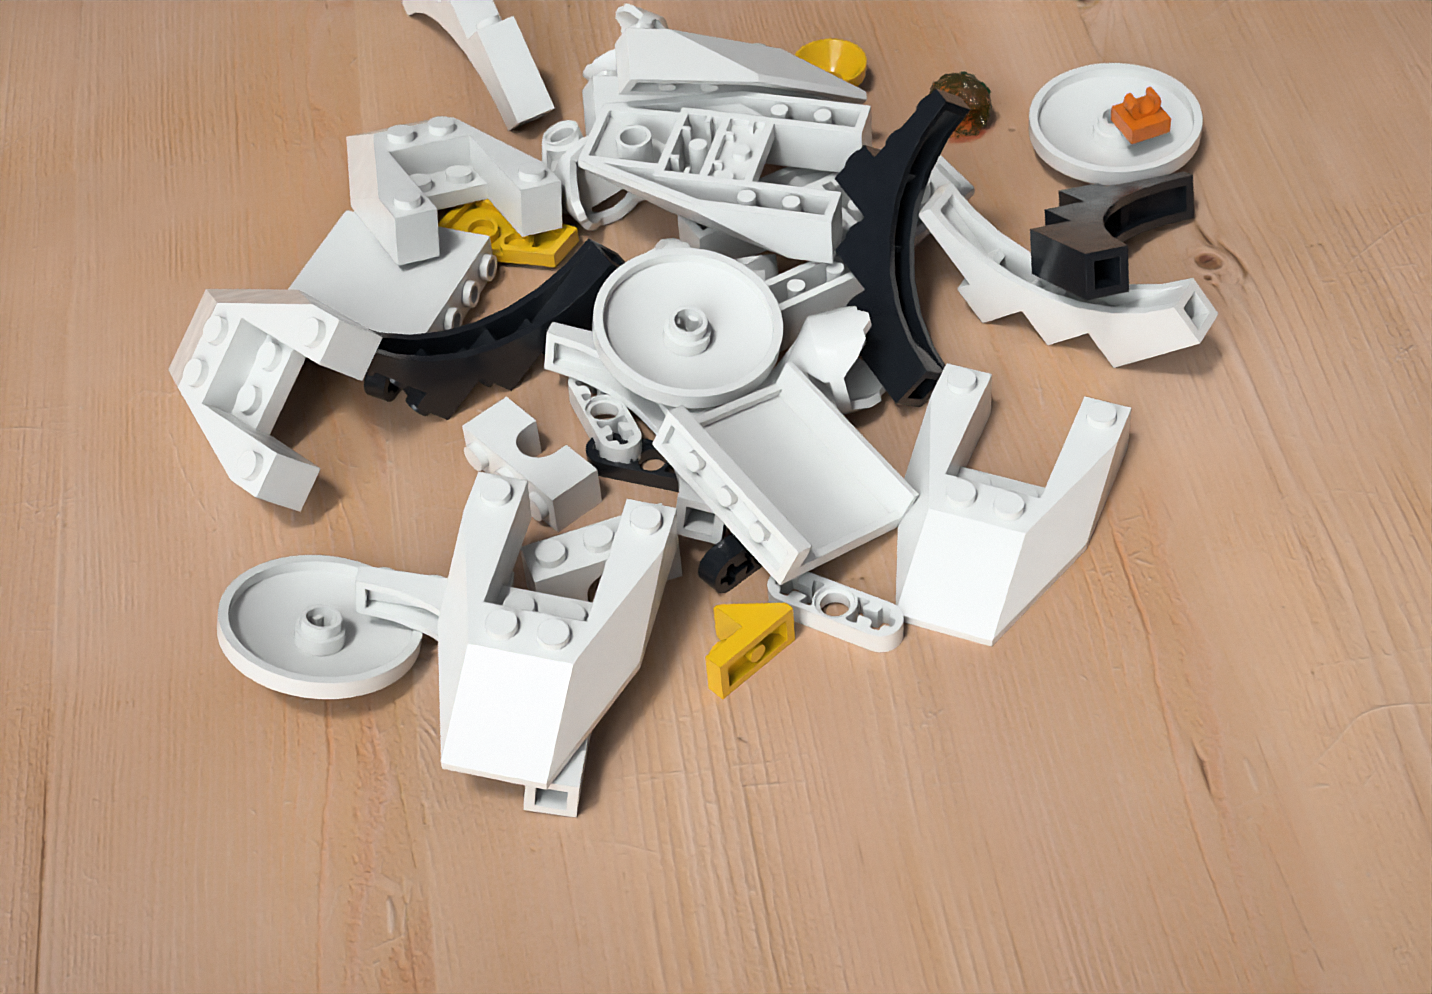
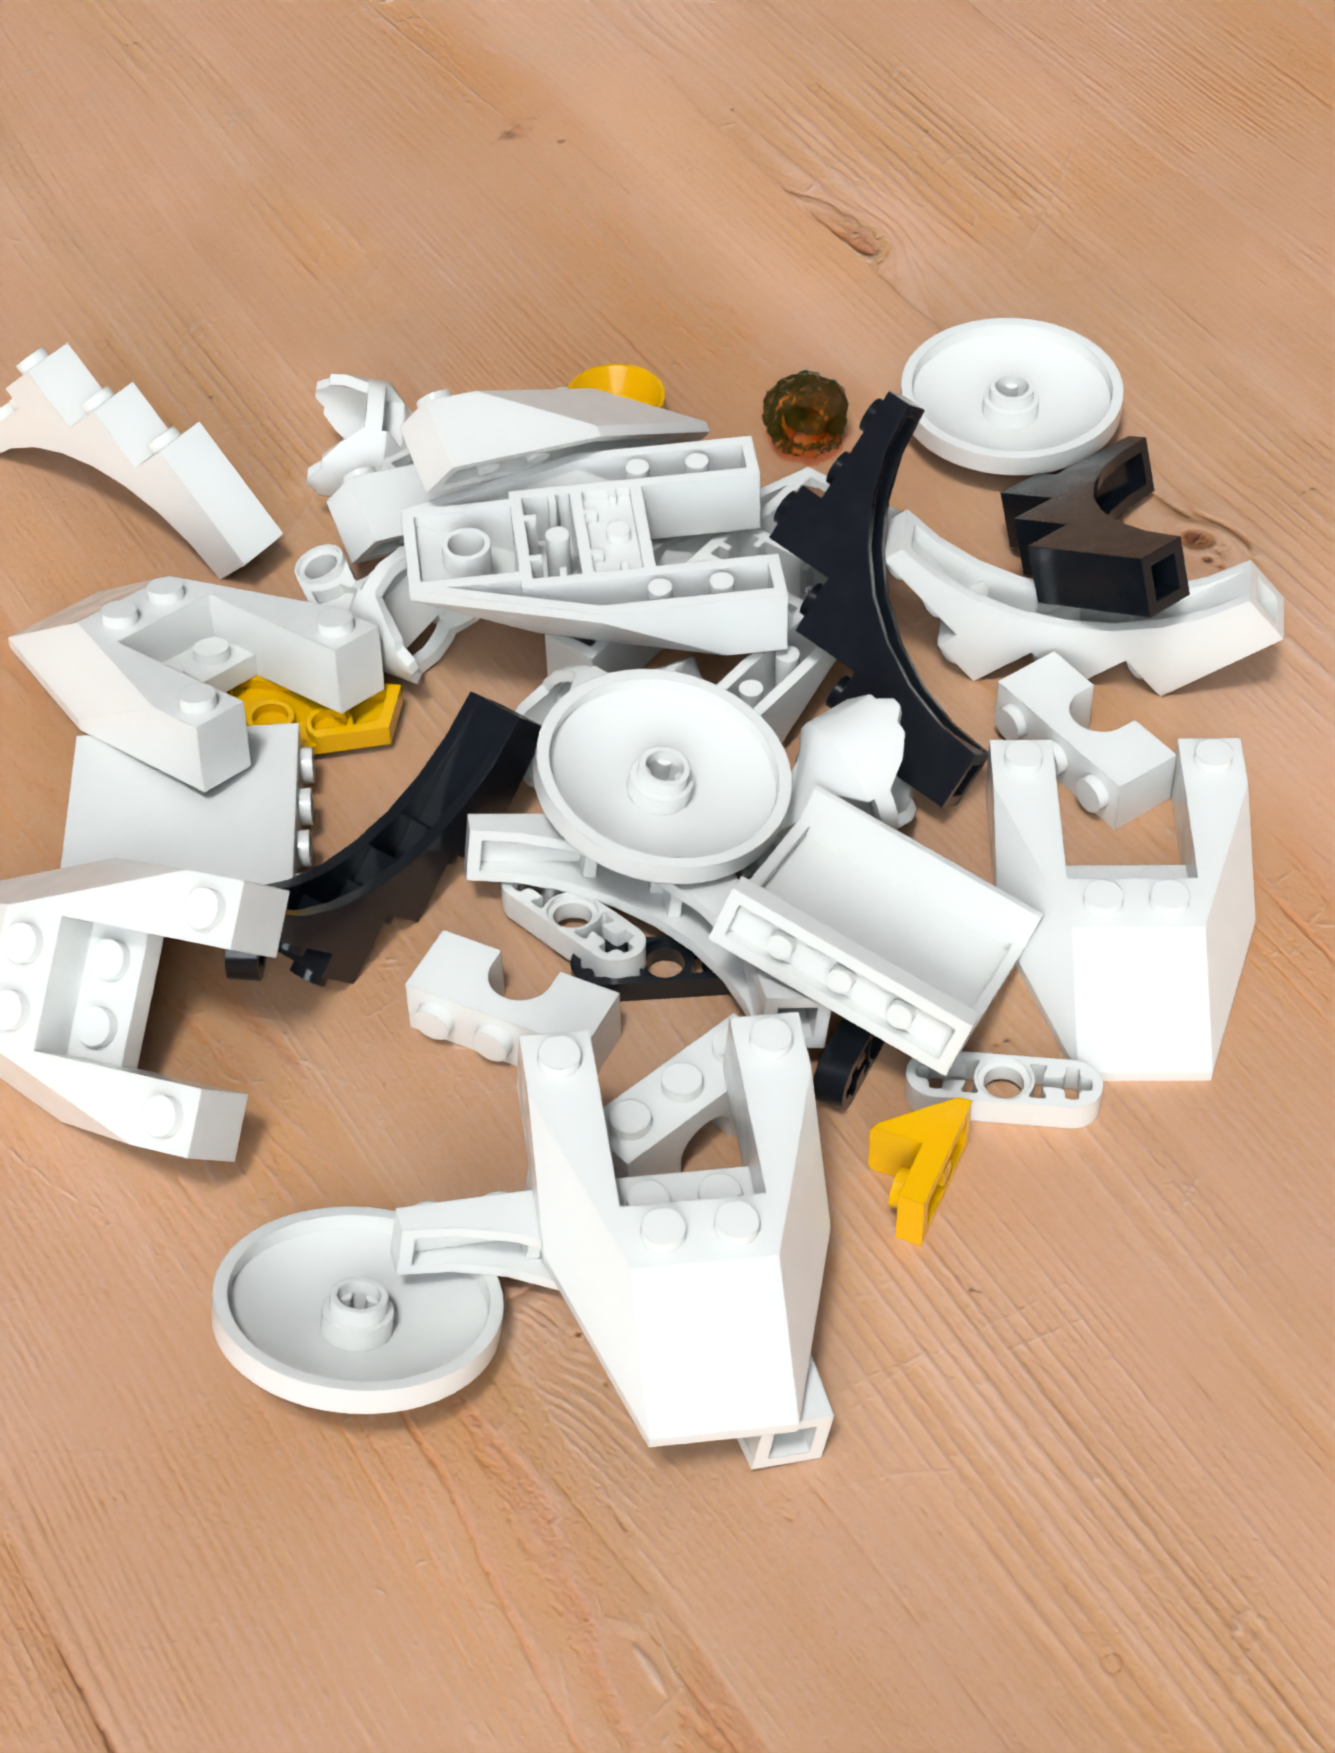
camera: 25 degrees left, 0 degrees up
(1018, 359) = (1109, 772): none -> white arch
(1141, 117) = (1049, 379): orange tile -> none

